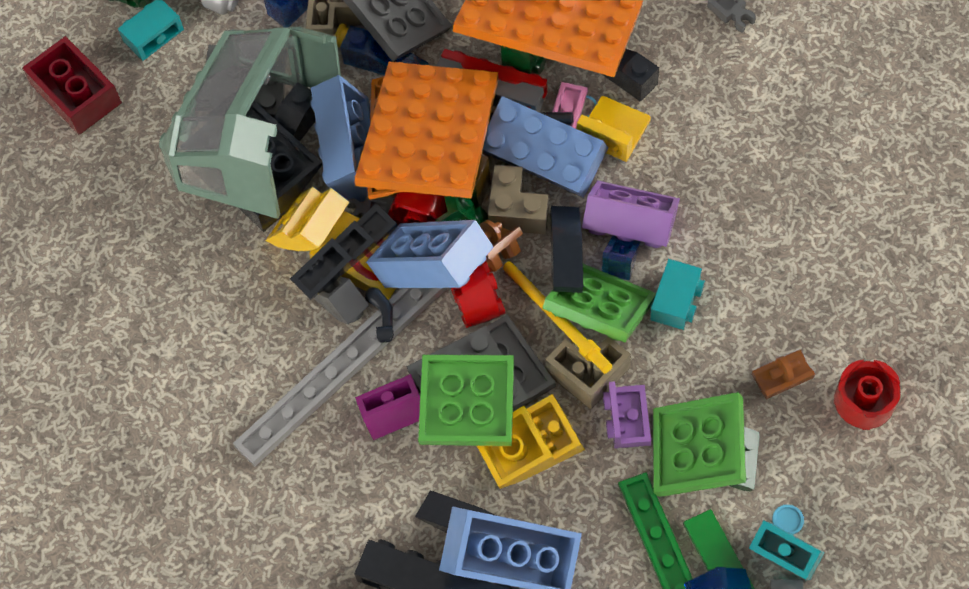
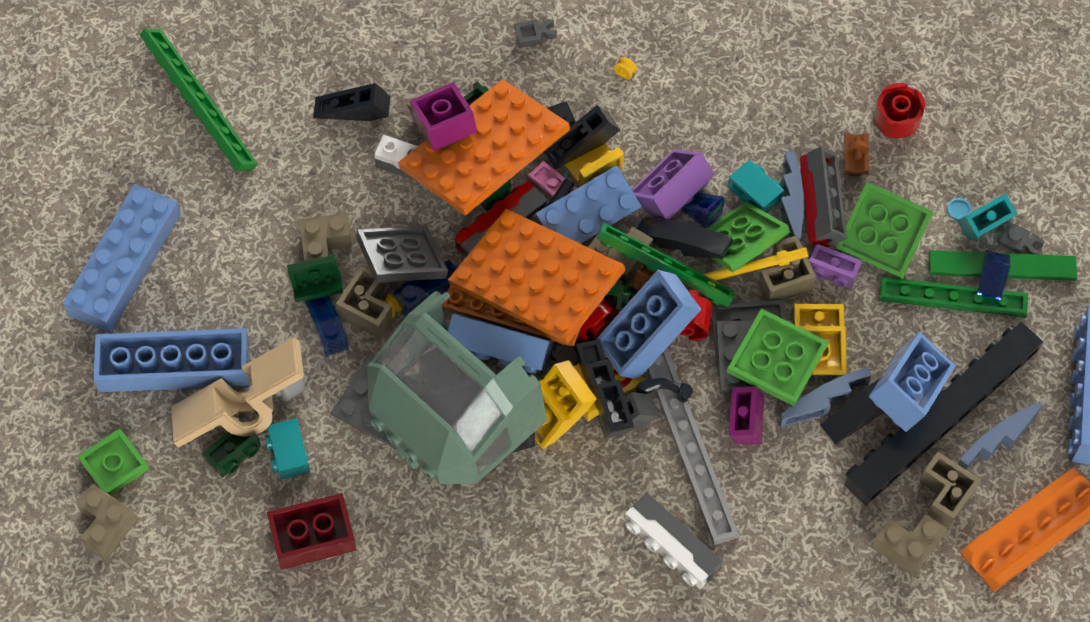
camera: 70 degrees left, 0 degrees up
(214, 403) = (673, 541): none -> piece
(451, 473) = (818, 401): none -> sand blue slope
(515, 243) = (655, 260): none -> green plate
(633, 104) = (584, 136): none -> black slope
(676, 342) = (793, 203): none -> sand blue slope
(703, 364) = (823, 197): none -> dark grey piece
(743, 107) = (625, 68): none -> yellow bush

